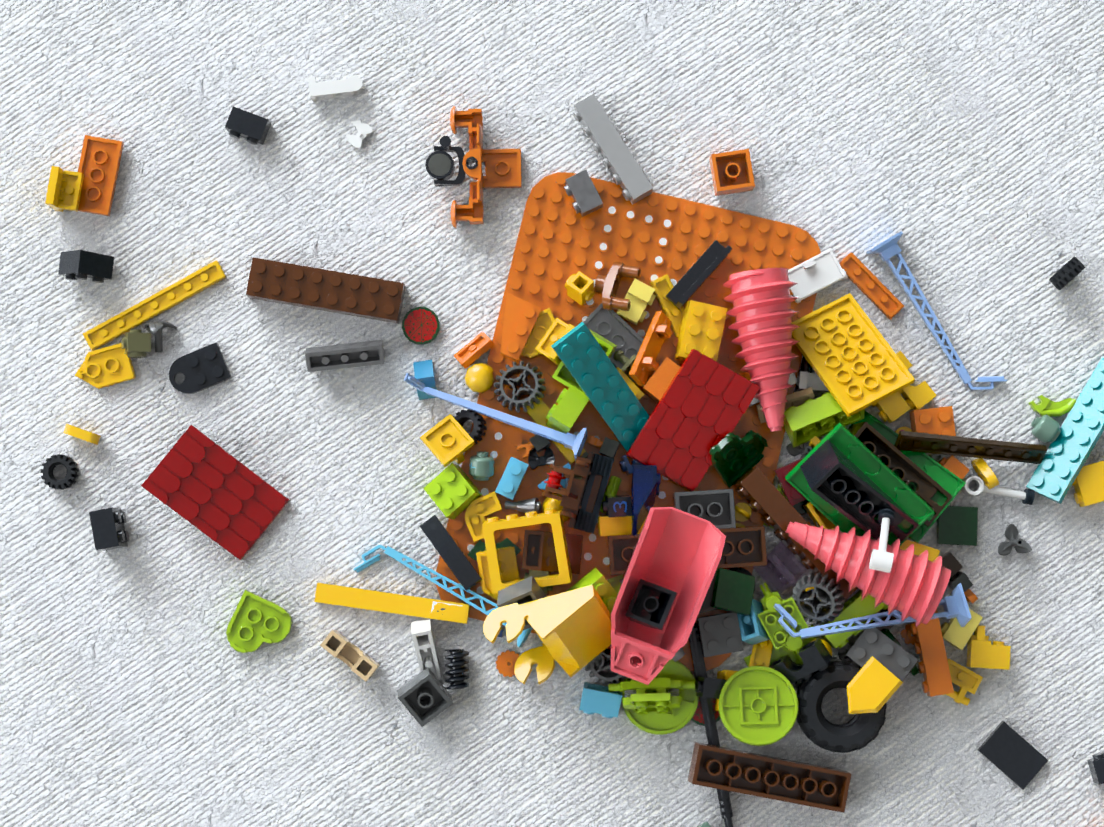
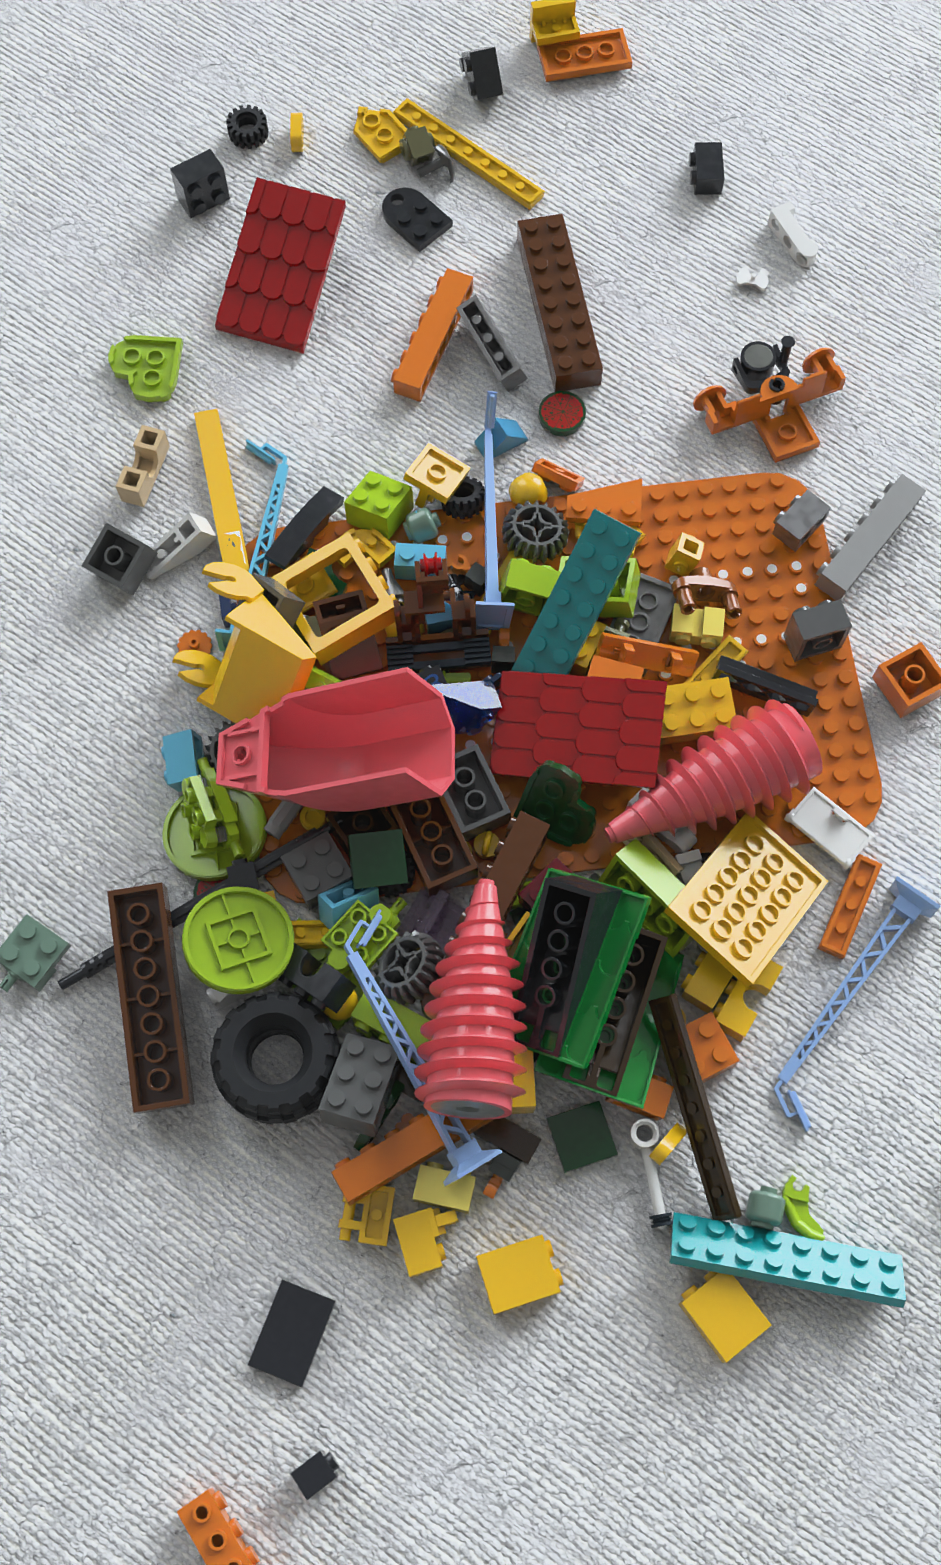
camera: 70 degrees right, 15 degrees down
(316, 395) = (432, 335): none -> orange brick
(457, 668) = (166, 586): black piece -> none
(650, 605) = (320, 748): black slope -> none
(675, 221) = (817, 629): none -> dark grey brick
(871, 688) = (312, 1075): yellow tile -> none
(881, 559) = (487, 995): white piece -> none
(1019, 544) = (600, 1217): dark grey plant -> none
(1029, 599) = (519, 1274): none -> yellow brick

